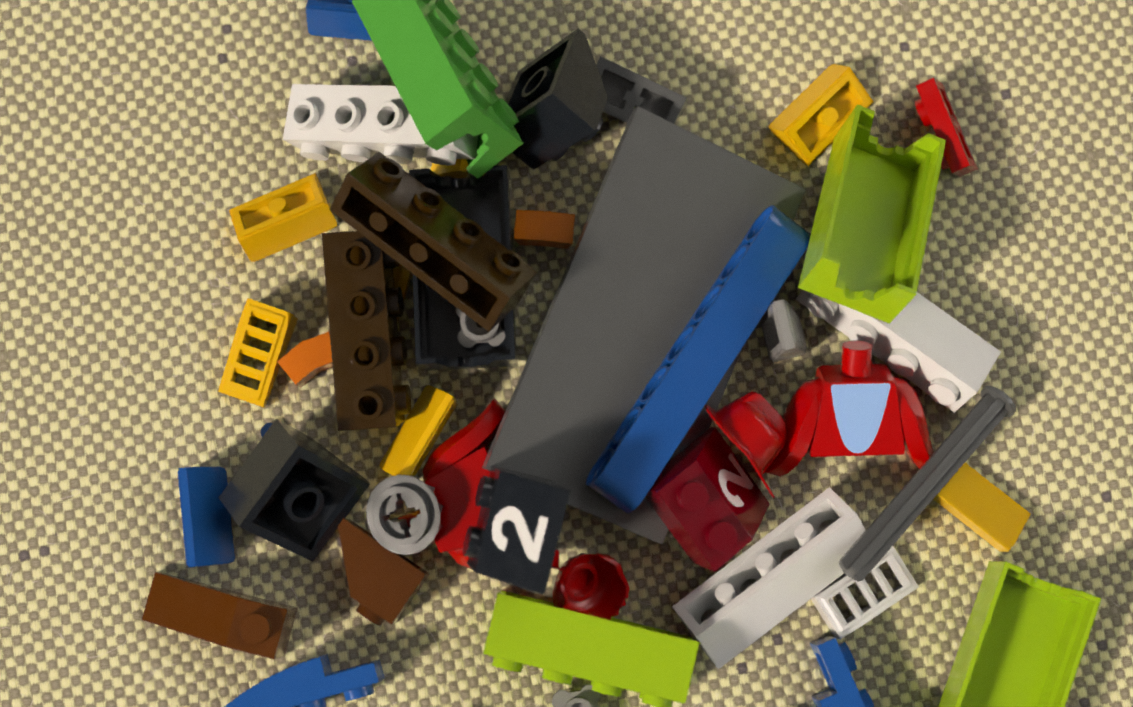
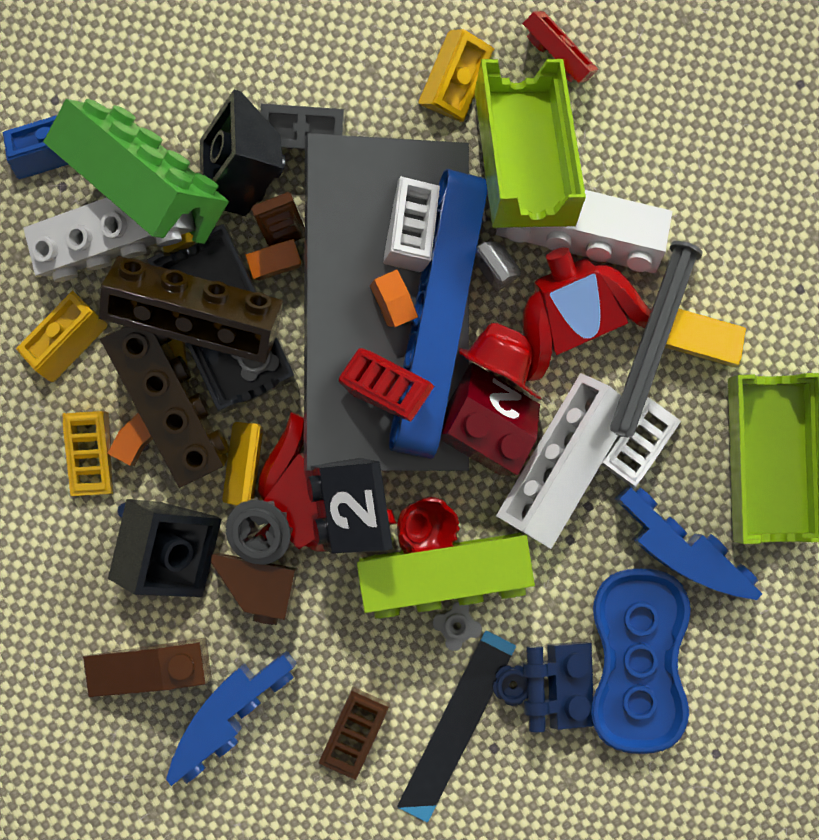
camera: 20 degrees left, 5 degrees up
(204, 517) = (103, 598): blue slope -> none
(568, 186) = (279, 219): none -> reddish brown slope
(595, 385) = (364, 372): none -> red slope
(657, 321) = (393, 299): none -> orange piece
(690, 273) = (407, 250): none -> white slope

